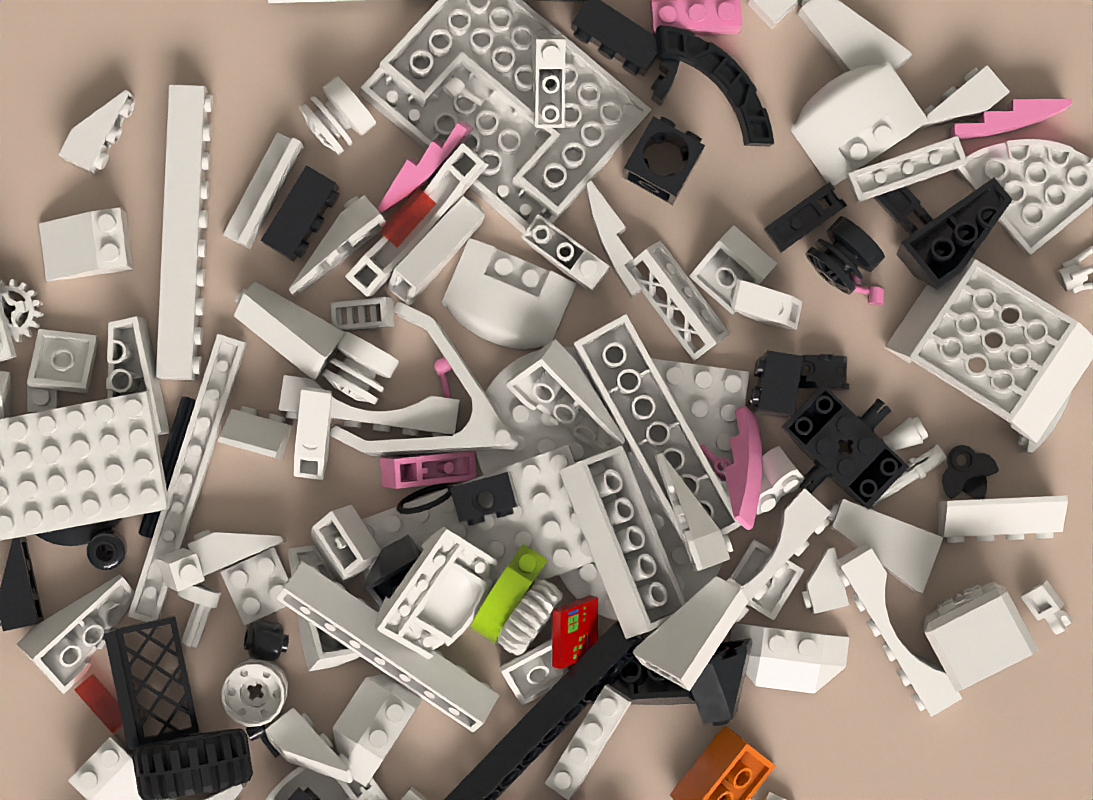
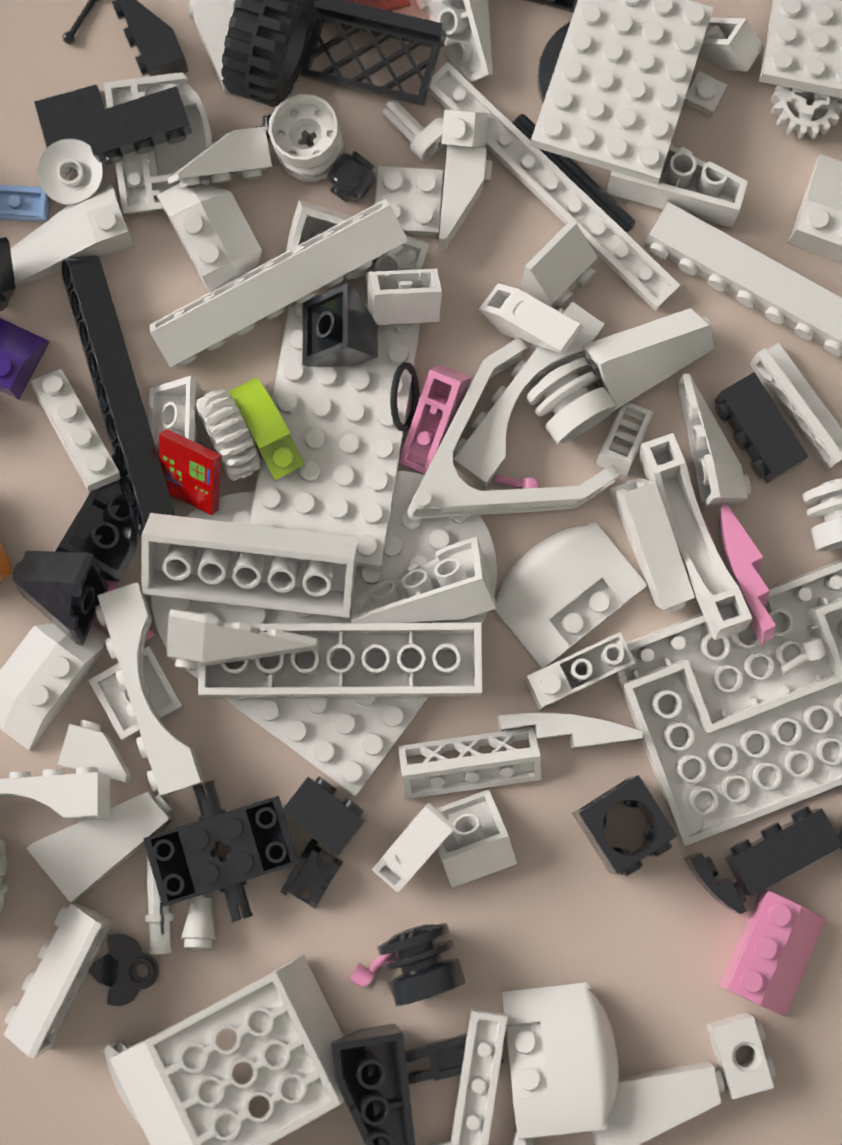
camera: 115 degrees right, 5 degrees down
(62, 361) = (731, 126): white plate -> none
(101, 558) = (522, 73): black head -> none
(408, 217) = (701, 527): clear red piece -> none
(437, 594) = (300, 350): white slope -> none
(466, 498) = (376, 431): black brick -> none
(549, 80) = (771, 751): white slope -> none
(693, 633) = (115, 580): white slope -> none
(719, 464) = (278, 709): bright pink hand -> none
(726, 74) = (682, 944): black tile -> none
(746, 473) = (248, 728): bright pink slope -> none
(778, 478) = (231, 752): white brick -> none
(804, 218) = (485, 945): black plate -> none

